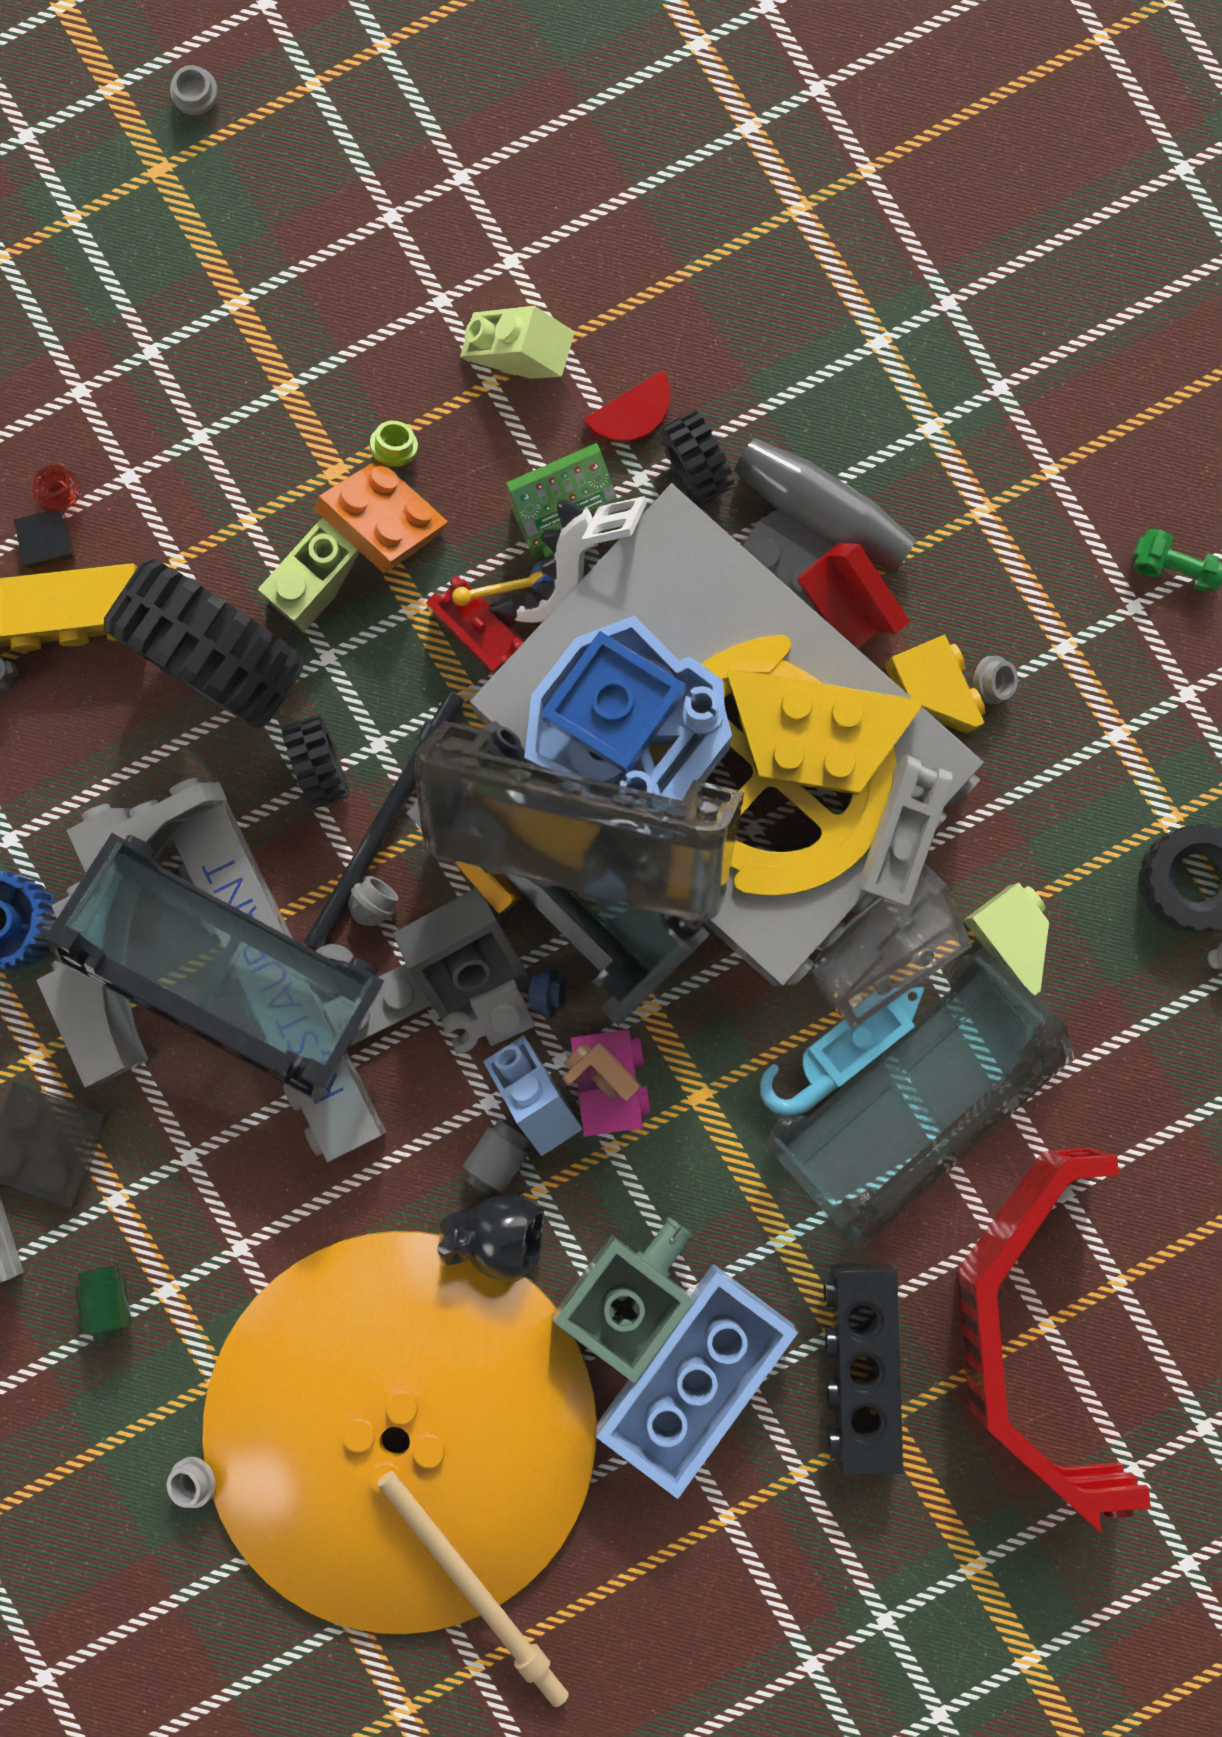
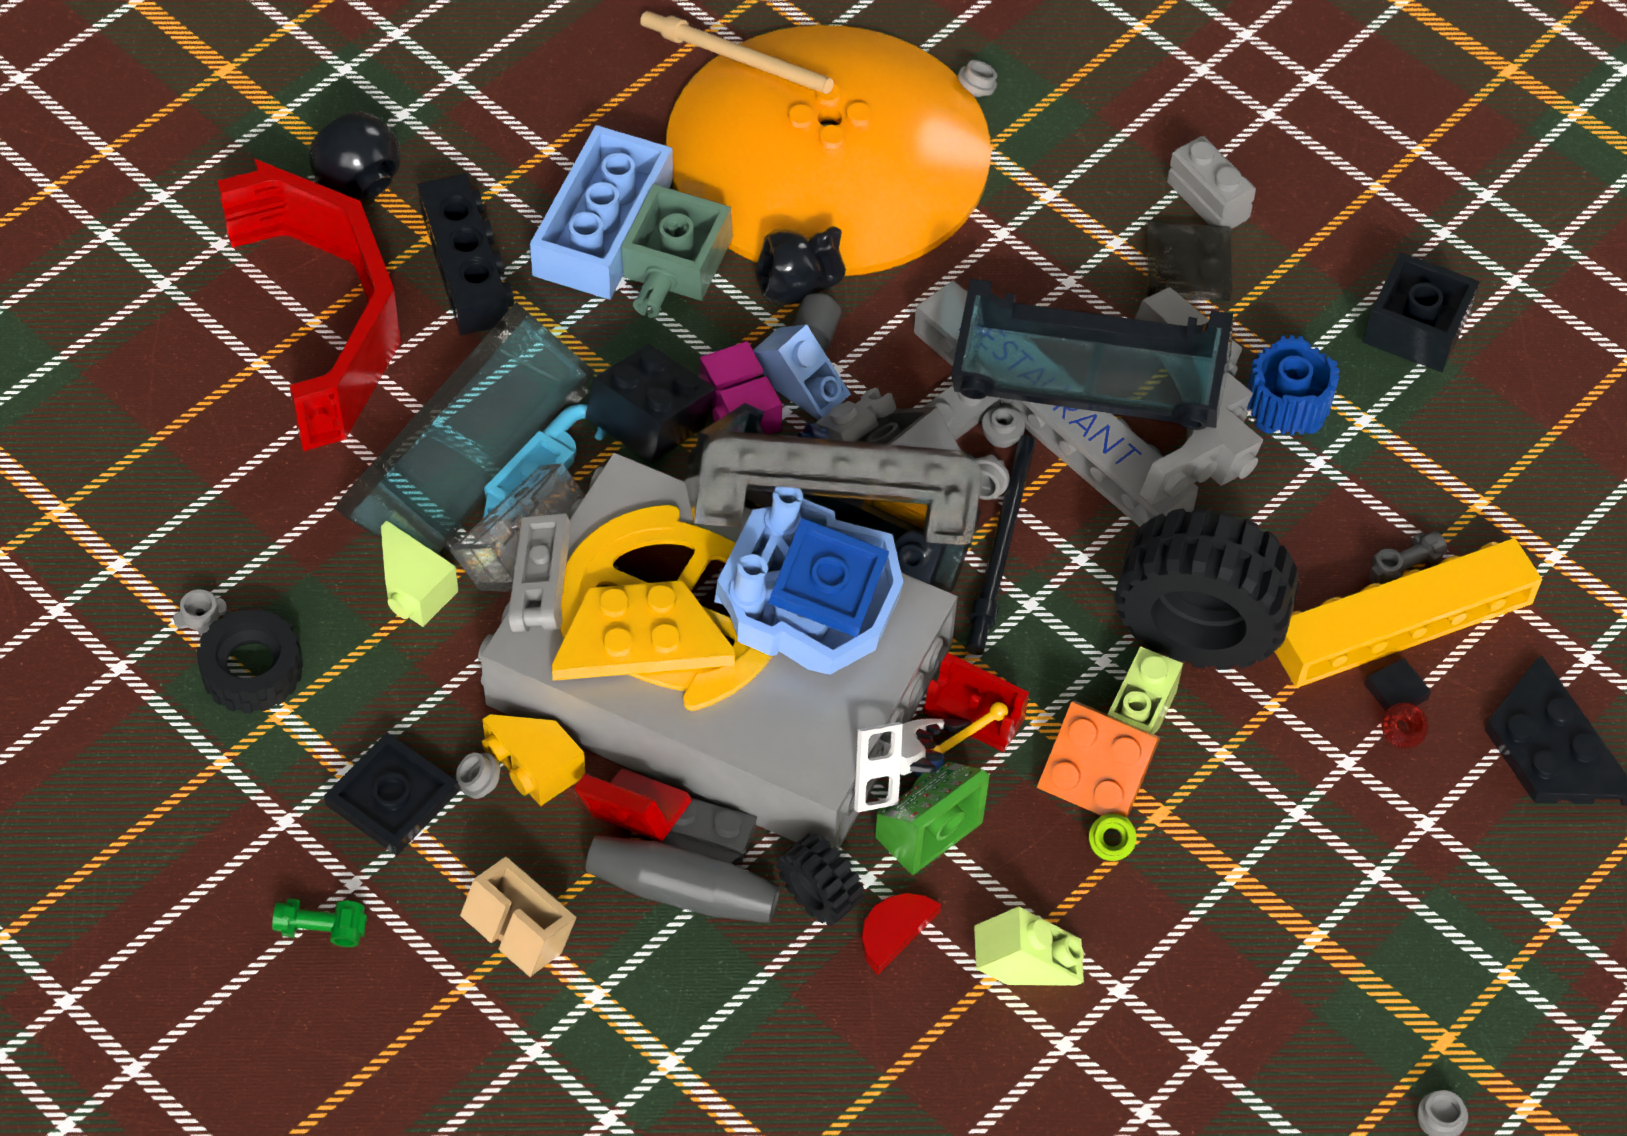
camera: 165 degrees right, 30 degrees down
(103, 1303) = (1094, 168): dark green brick -> none
(315, 761) = (1077, 553): black tyre -> none
(610, 1075) = (745, 378): medium nougat bracket -> none
(713, 1084) = (649, 402): none -> black brick
(967, 1534) = (355, 155): none -> black wheel
(995, 499) = (520, 914): none -> tan piece
(1084, 683) = (391, 793): none -> black plate

